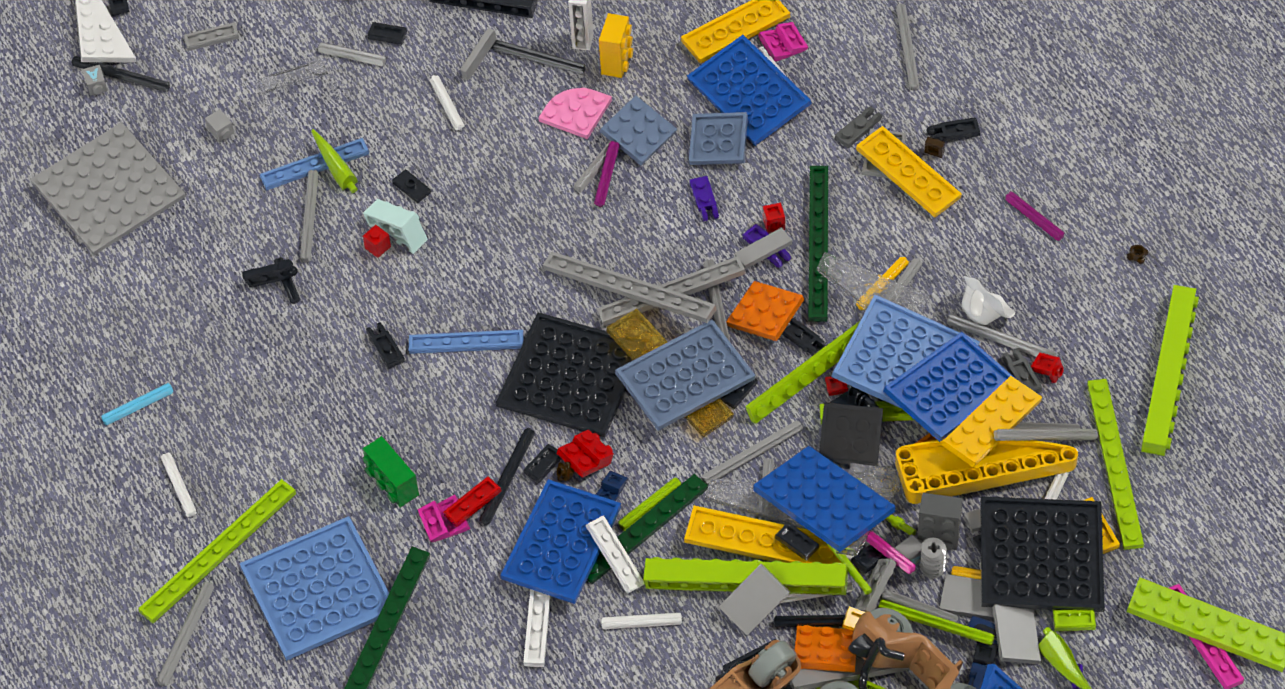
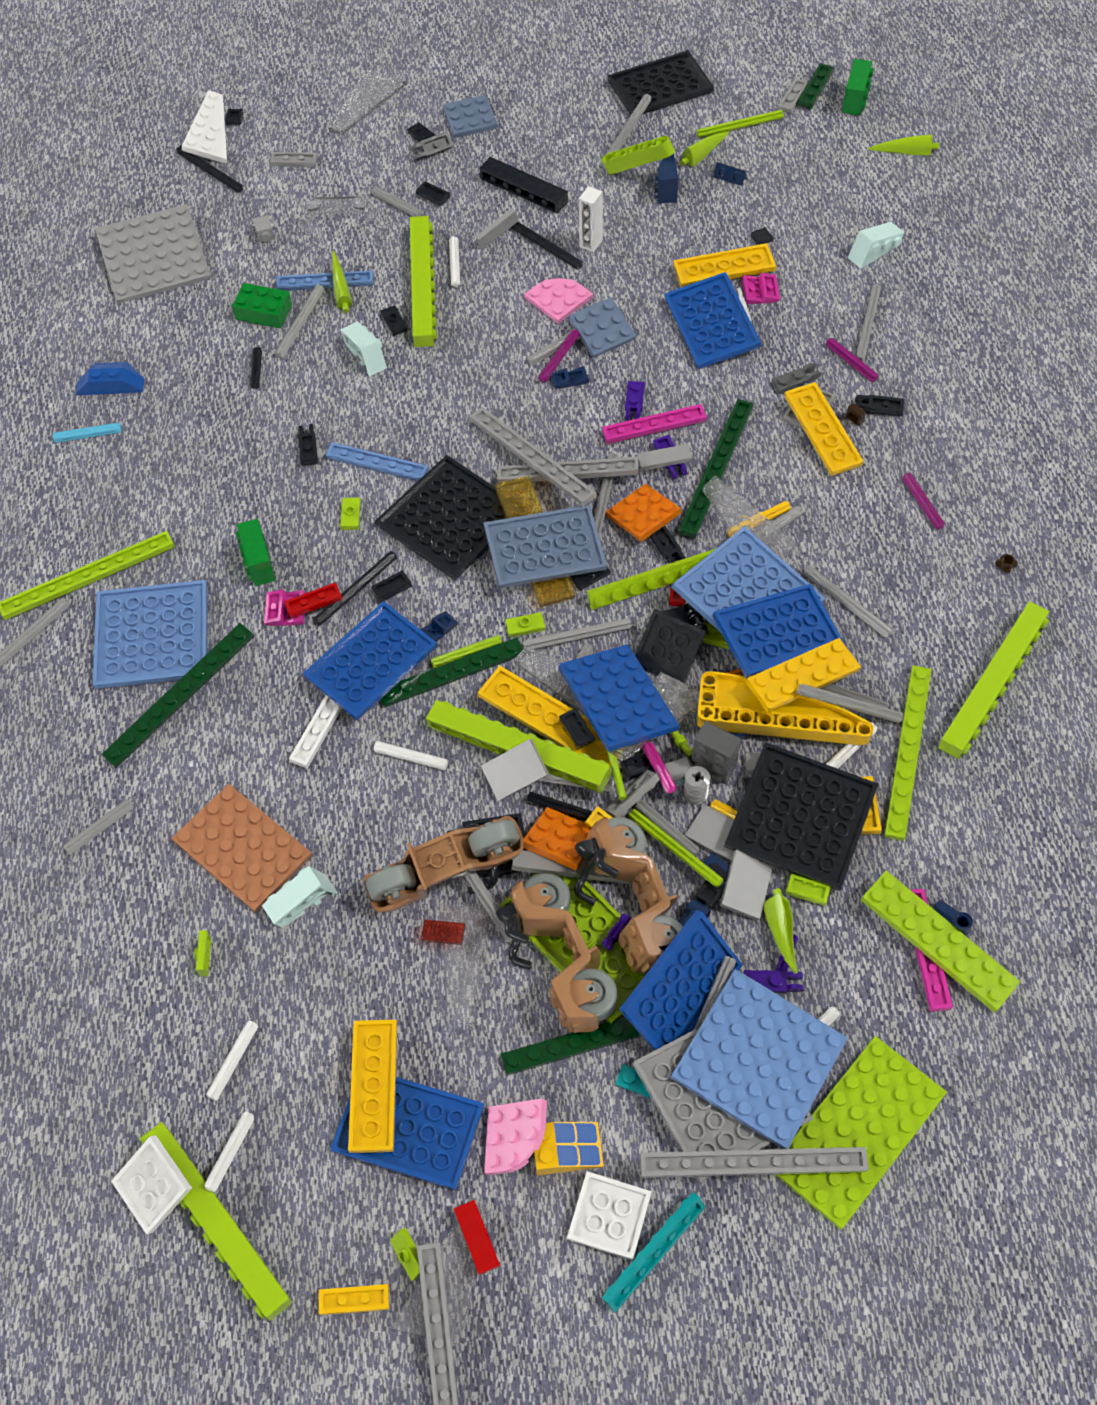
camera: 20 degrees right, 5 degrees up
(95, 80) = (186, 167): light grey brick -> none
(132, 339) = (110, 379): none -> blue wedge
(178, 484) = (84, 512): white axle -> none
(262, 211) = (262, 305): none -> green brick
(270, 273) = (241, 357): black hinge -> none
(376, 241) = (342, 356): red brick -> none
(423, 135) = (421, 281): none -> lime brick
(464, 403) = (350, 513): none -> lime plate
(564, 472) = (405, 599): dark brown plate -> none
(586, 453) = (430, 589): red plate -> none
(615, 45) = (611, 250): yellow brick -> none
(615, 554) = (411, 687): white tile -> none
(625, 195) = (566, 379): none -> dark blue slope
(696, 459) = (525, 624): none -> lime plate
(718, 138) = (667, 353): sand blue plate -> none
(735, 217) = (654, 424): none -> dark pink plate
(773, 217) = (685, 433): red brick -> none
(907, 91) = (852, 360): none -> magenta axle
(982, 305) = (841, 565): white piece -> none
(1021, 370) = (854, 638): dark grey hinge -> none
(1048, 365) = (880, 640): red bracket -> none
(1216, 599) = (954, 916): none -> dark blue piece

